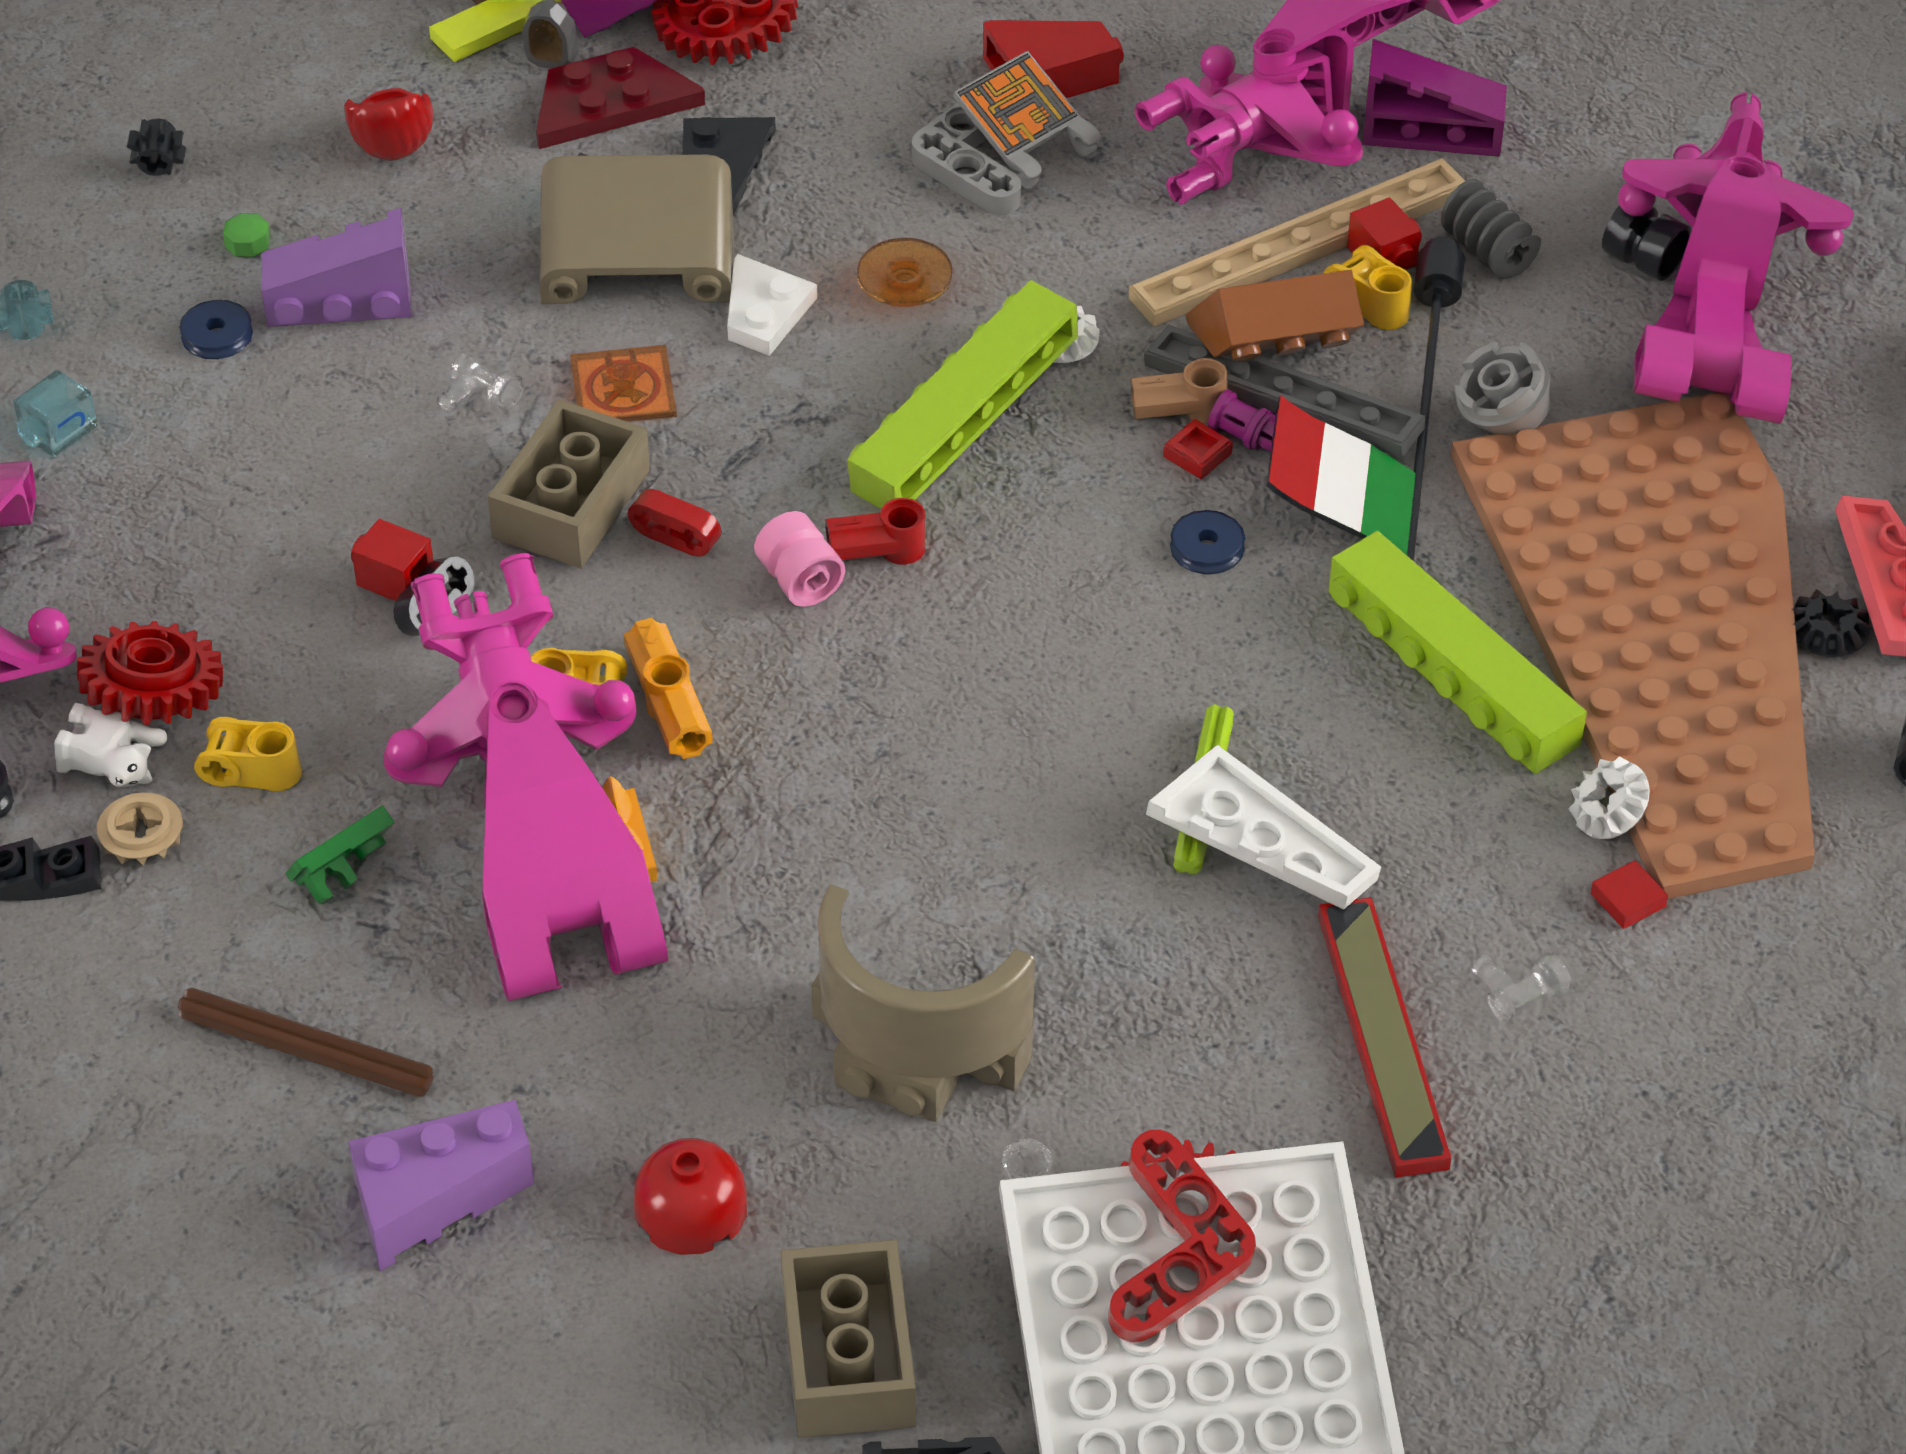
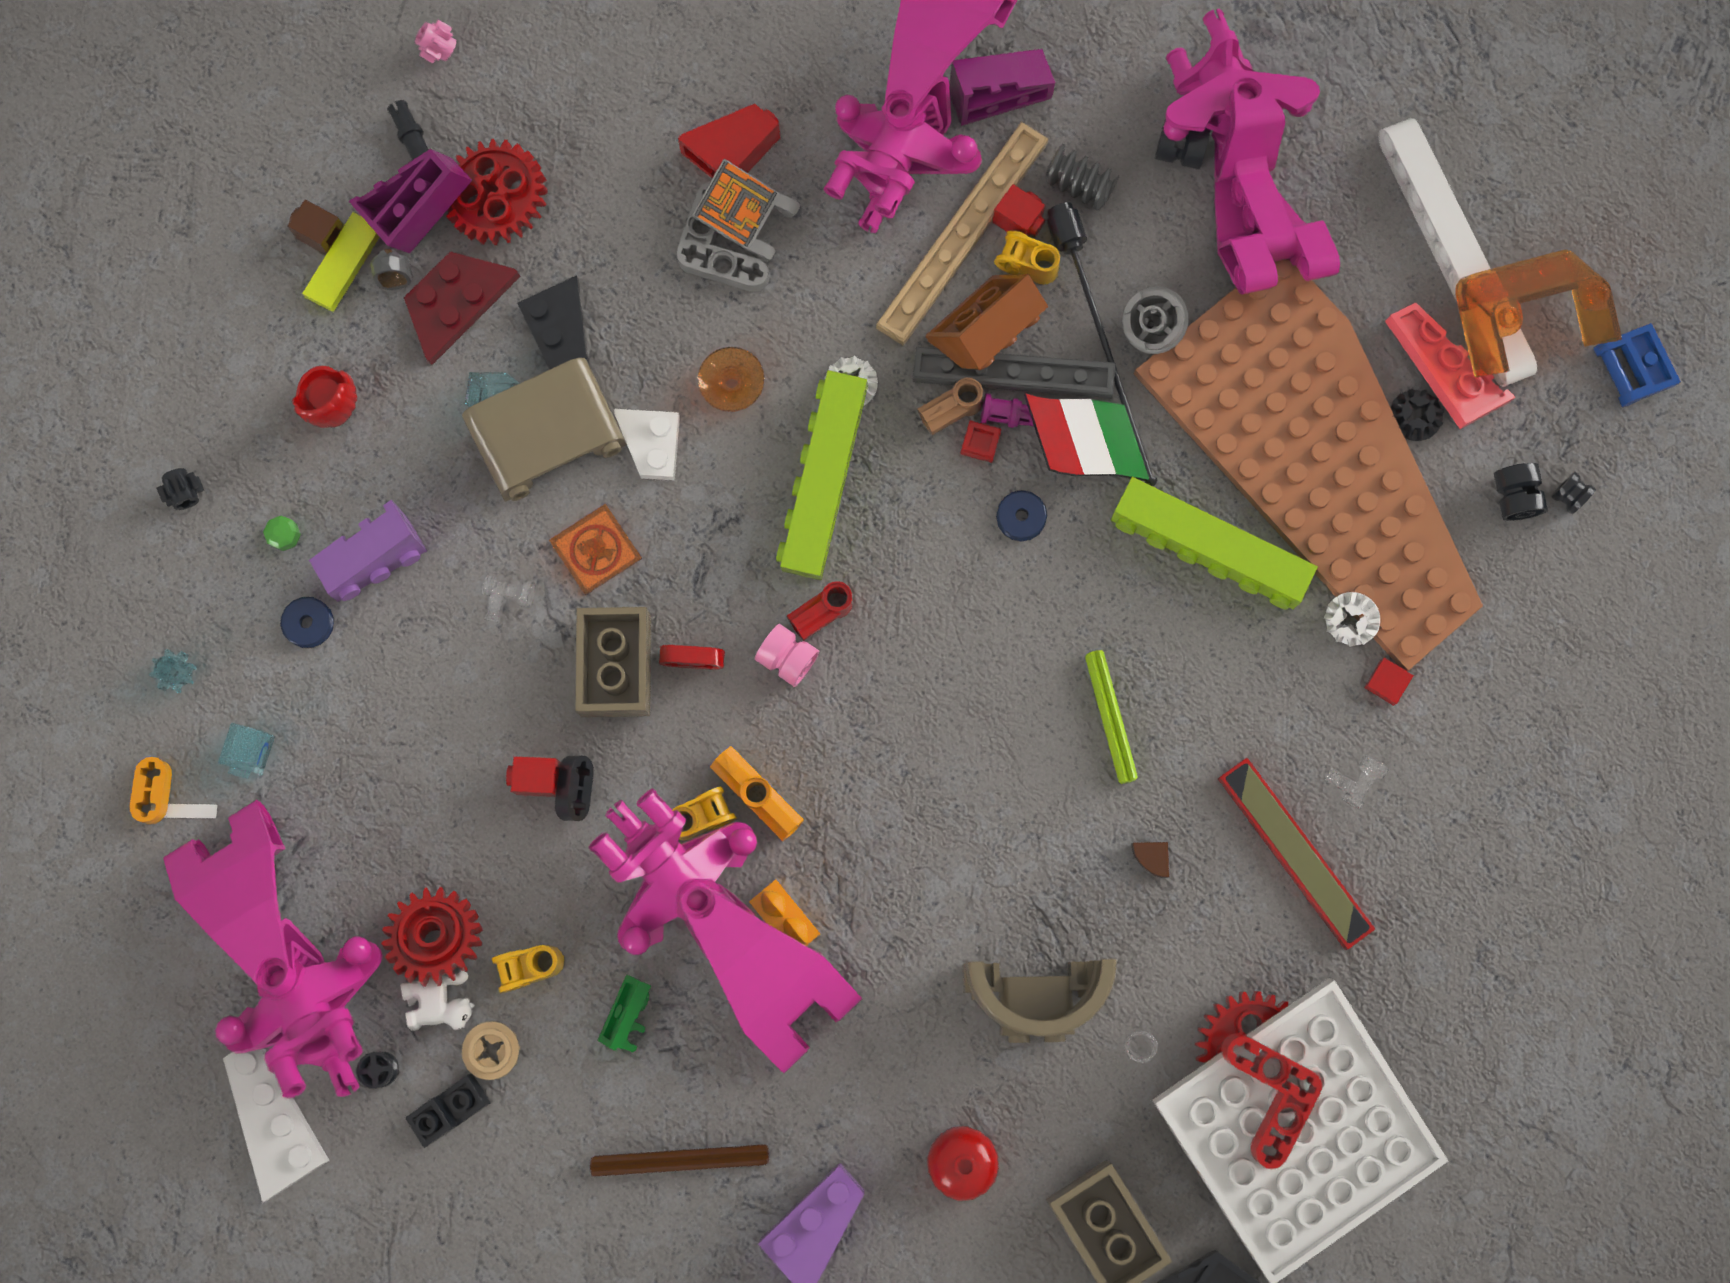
camera: 25 degrees left, 30 degrees up
(1172, 962) = (1153, 857): none -> reddish brown tile
(1258, 824) = (1158, 741): white wing -> none

